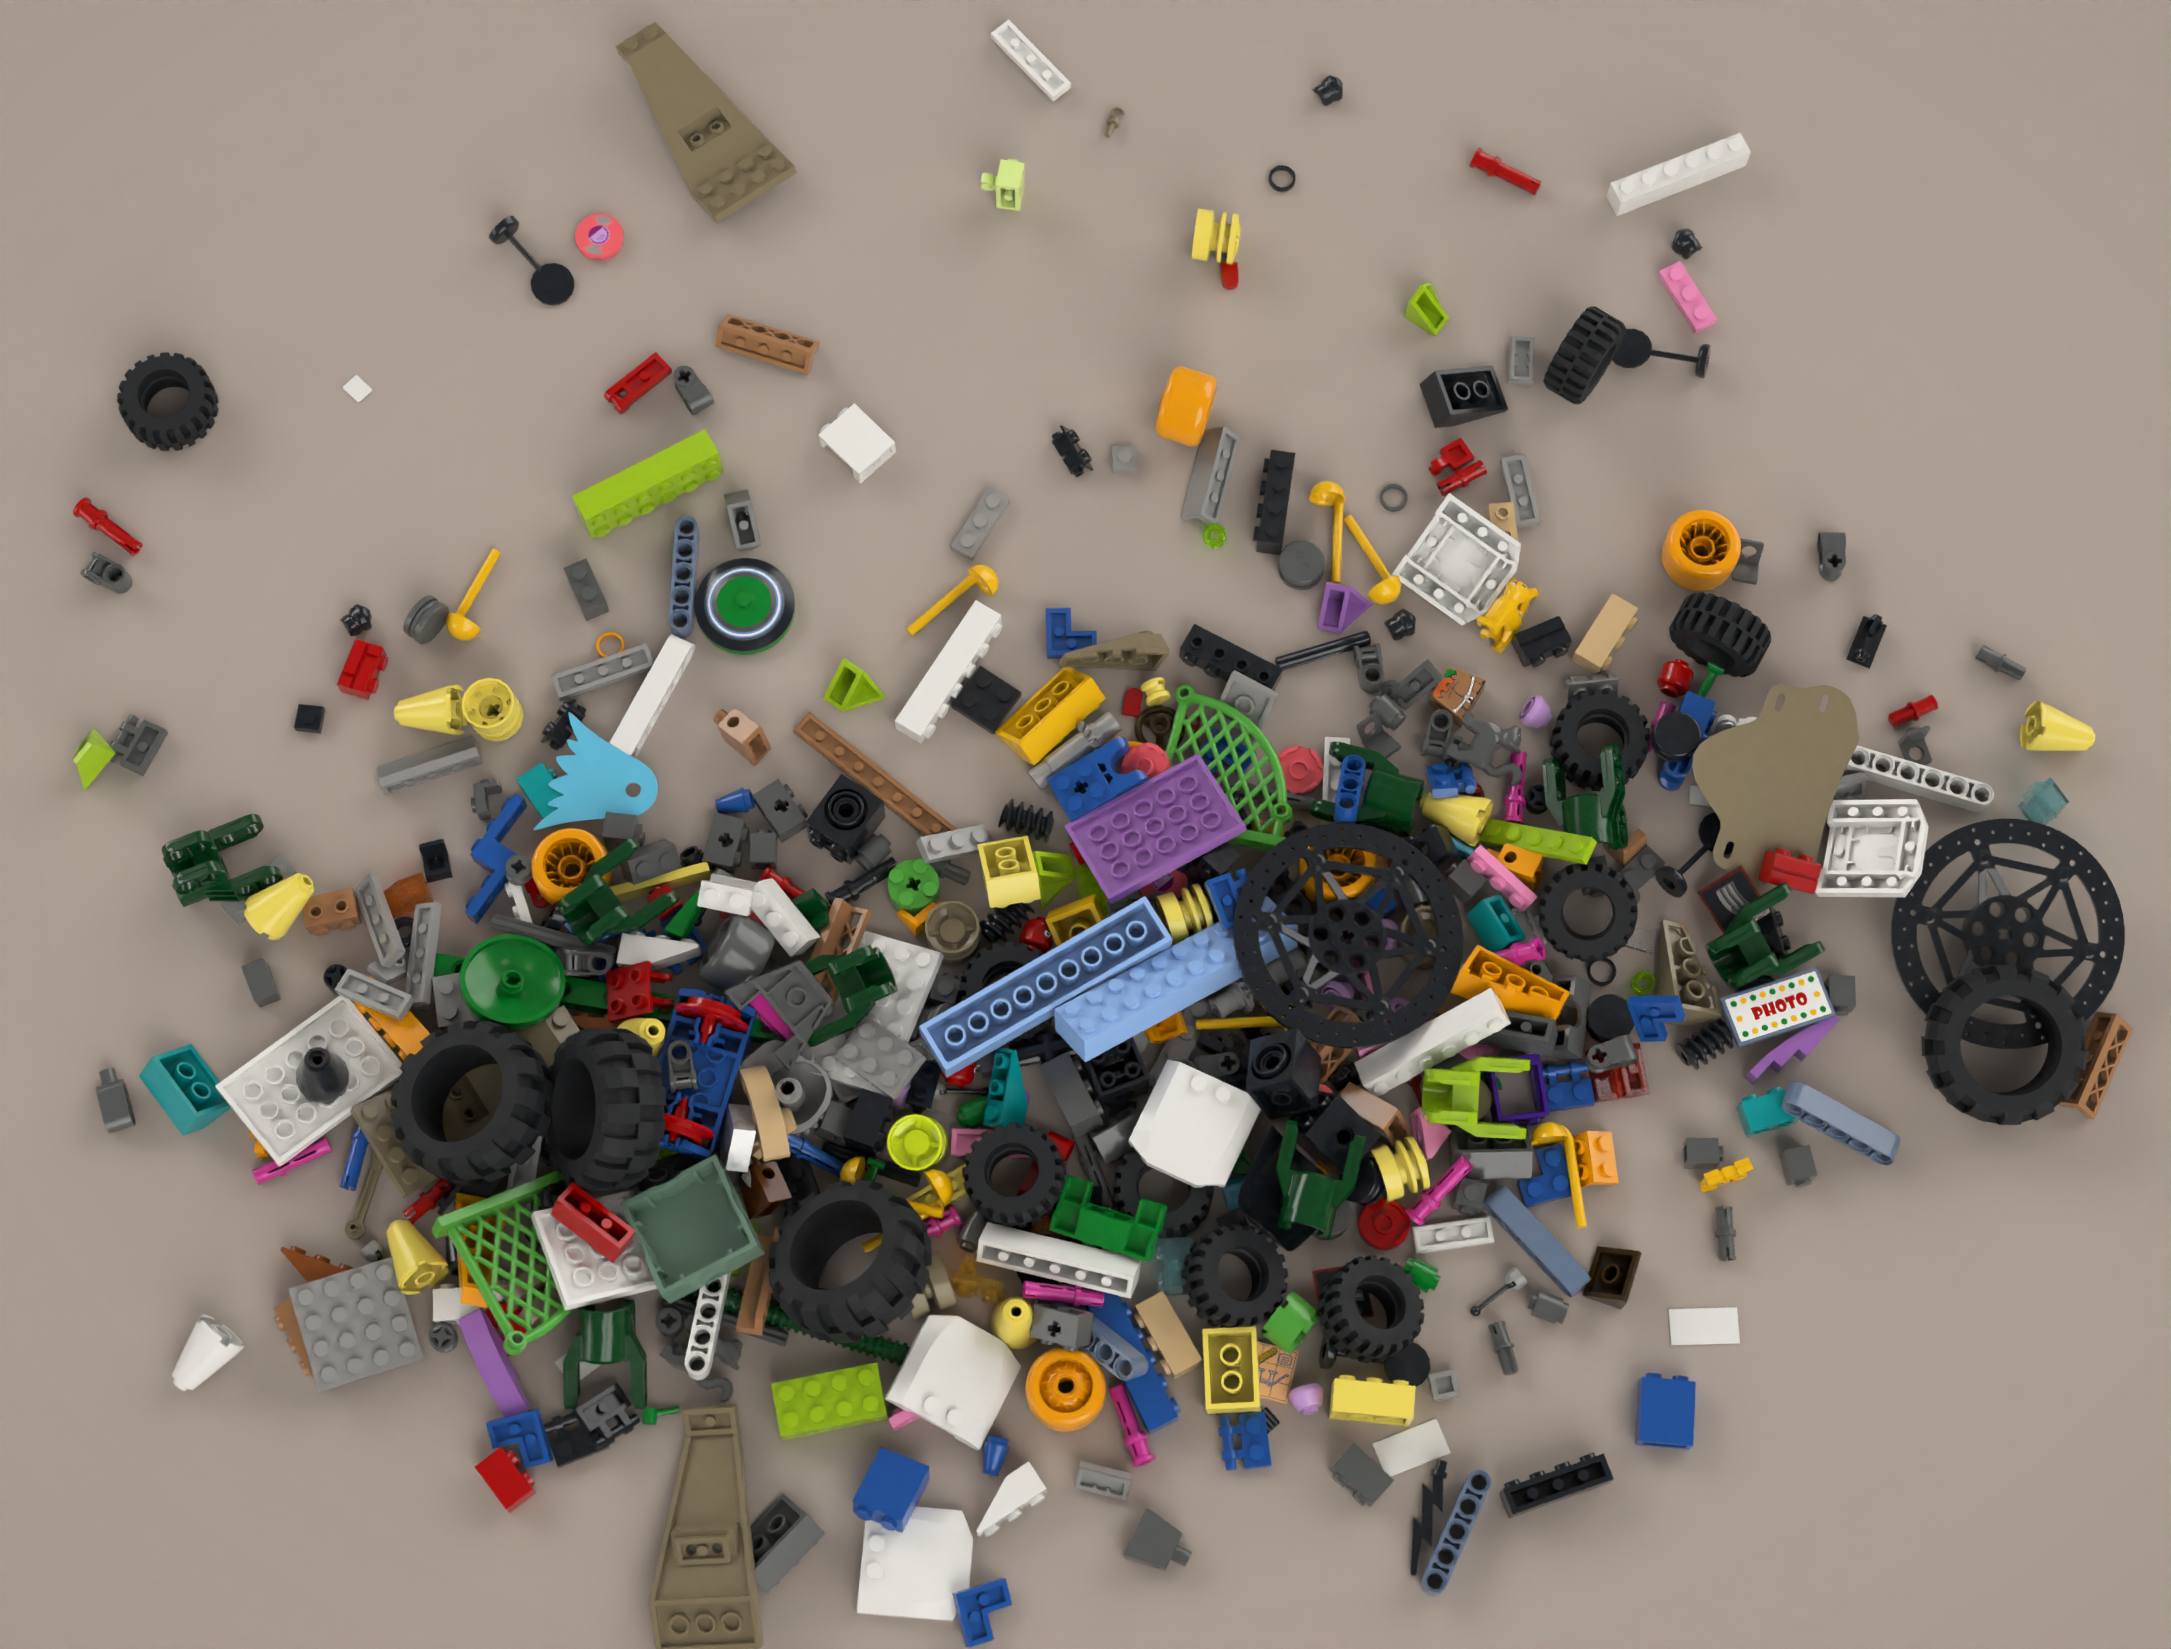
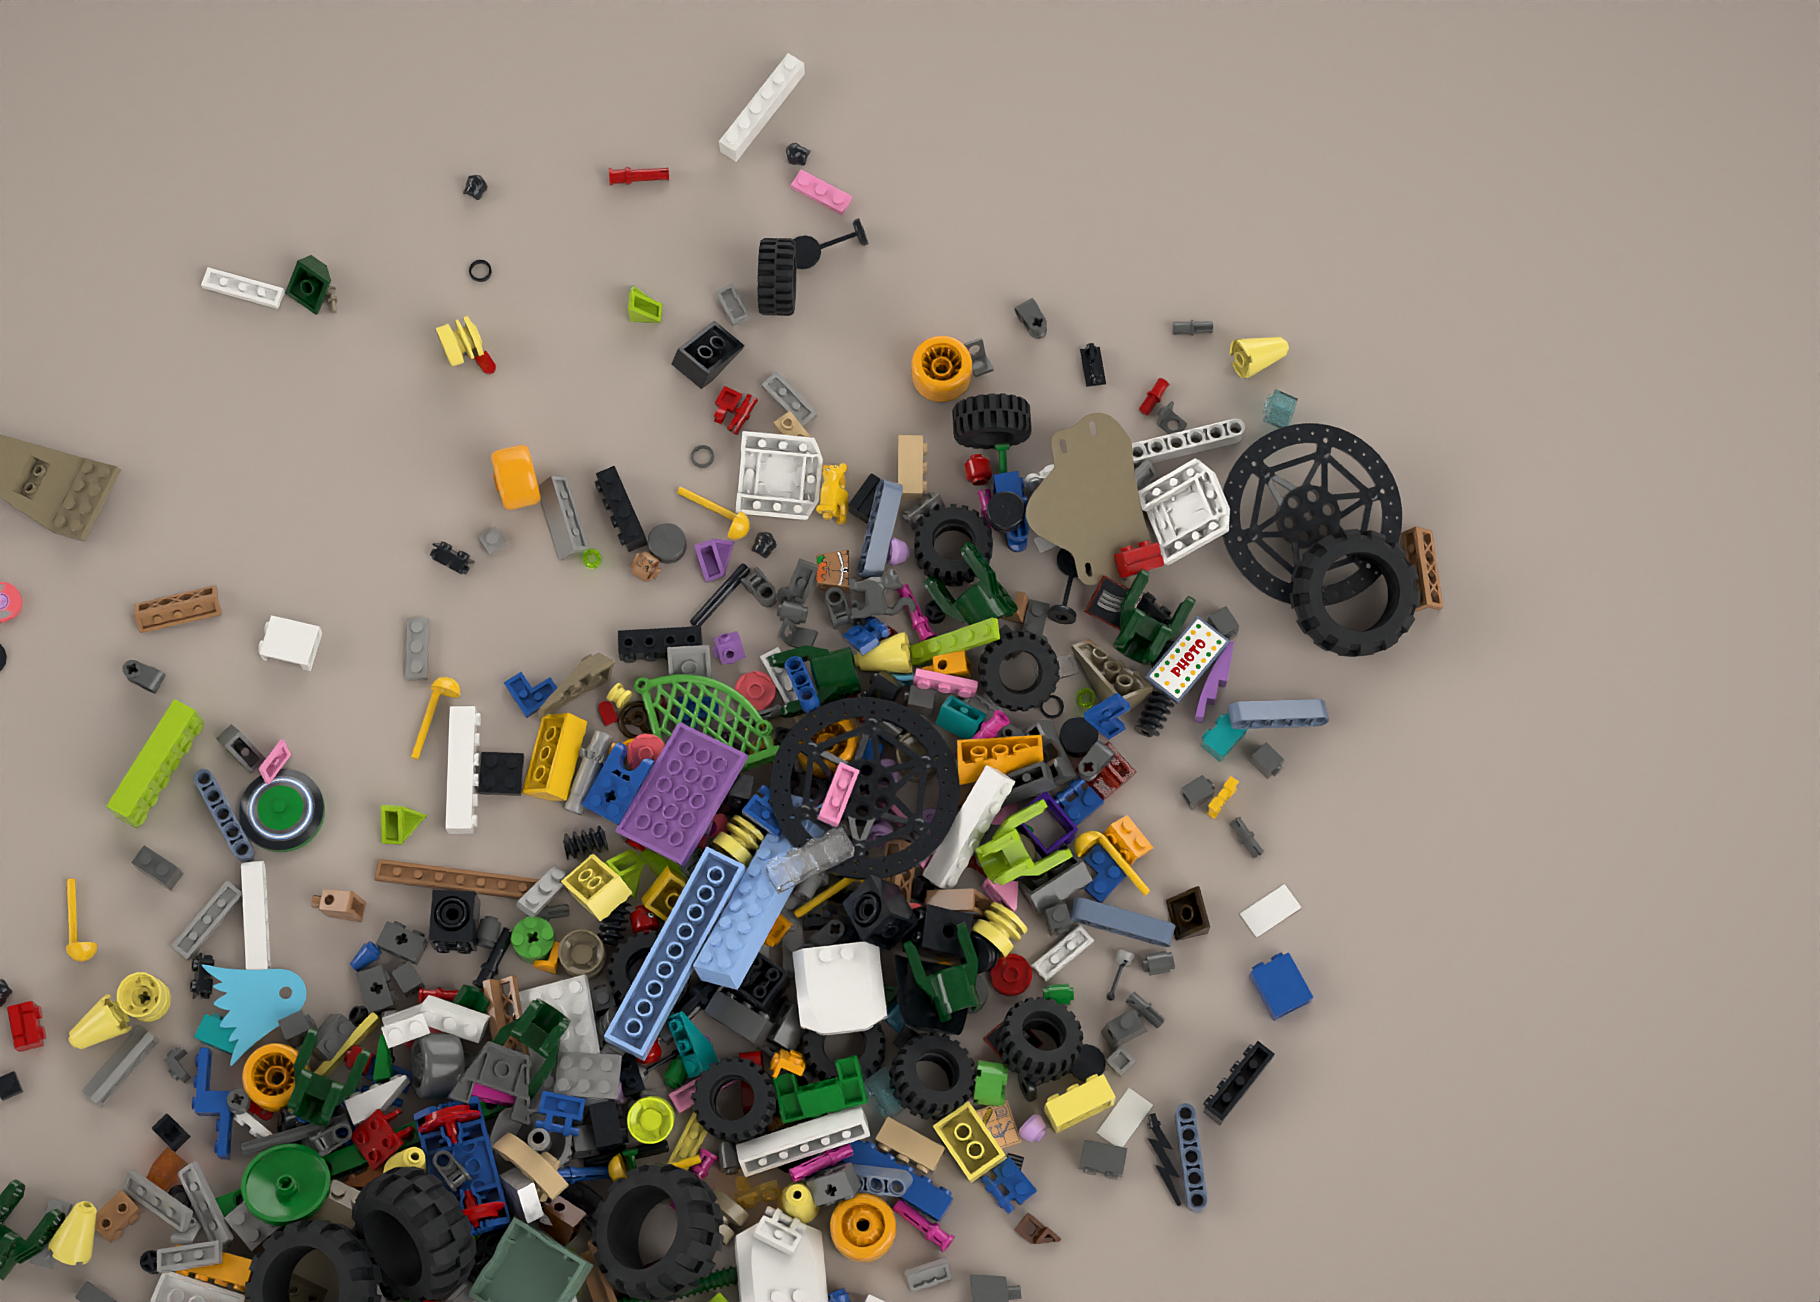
camera: 30 degrees left, 0 degrees up
(425, 619) = (51, 961): dark grey head -> none
(608, 634) = (193, 891): light orange piece -> none
(638, 382) = (99, 693): red plate -> none
(766, 552) = (274, 761): none -> bright pink slope
(834, 1073) = (562, 1107): none -> blue plate
(943, 1189) = (688, 1140): yellow piece -> none
(972, 1341) = (778, 1235): none -> white plate
(1008, 184) = (284, 390): yellowish green brick -> none
(1094, 1168) = (788, 1060): none -> light orange bracket
(1100, 92) = (309, 283): none -> dark green slope
(1242, 973) = (809, 860): none -> clear brick
(1243, 1506) = (1034, 1231): none -> reddish brown slope
(1263, 575) = (645, 566): none -> medium nougat head
(1297, 709) = (728, 648): none -> medium lavender brick
(1315, 925) = (838, 794): none -> bright pink plate
(1331, 494) = (658, 479): yellow piece -> none
(1431, 1198) = (1034, 936): dark pink pin -> none
(1468, 1353) = (1123, 1029): none -> dark grey torso
(1532, 678) = (879, 529): none -> sand blue beam

